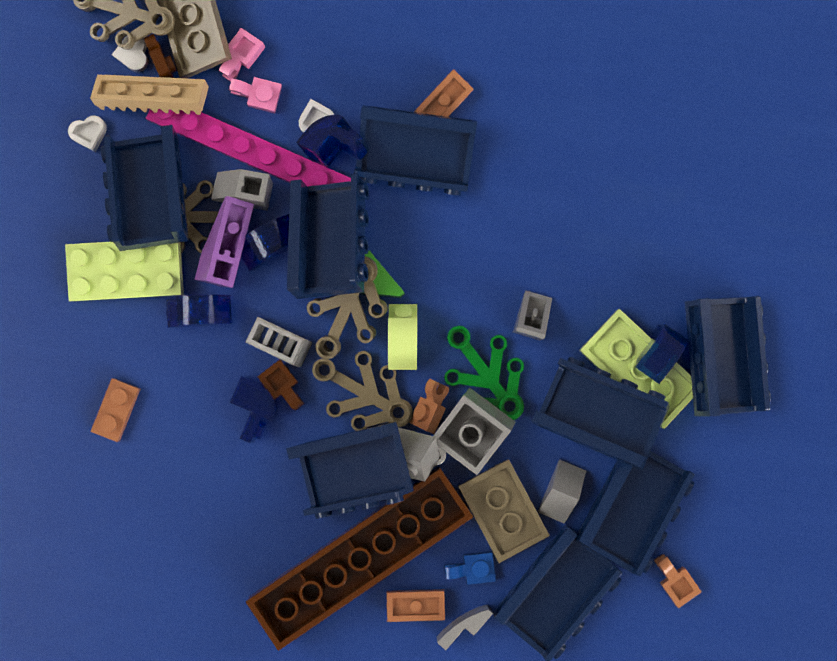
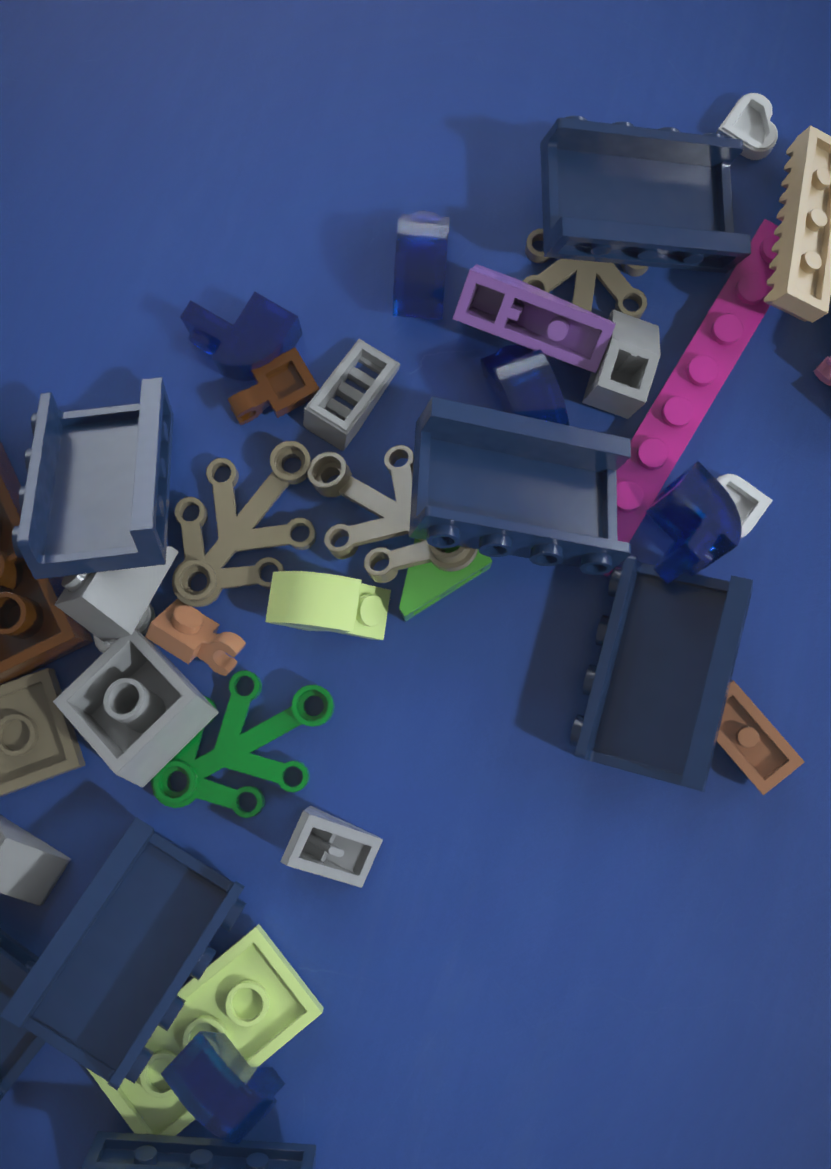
camera: 105 degrees right, 5 degrees down
(105, 273) = (500, 156): yellowish green plate -> none
(115, 410) = (277, 117): nougat plate -> none
(261, 94) = (787, 416): bright pink plate -> none

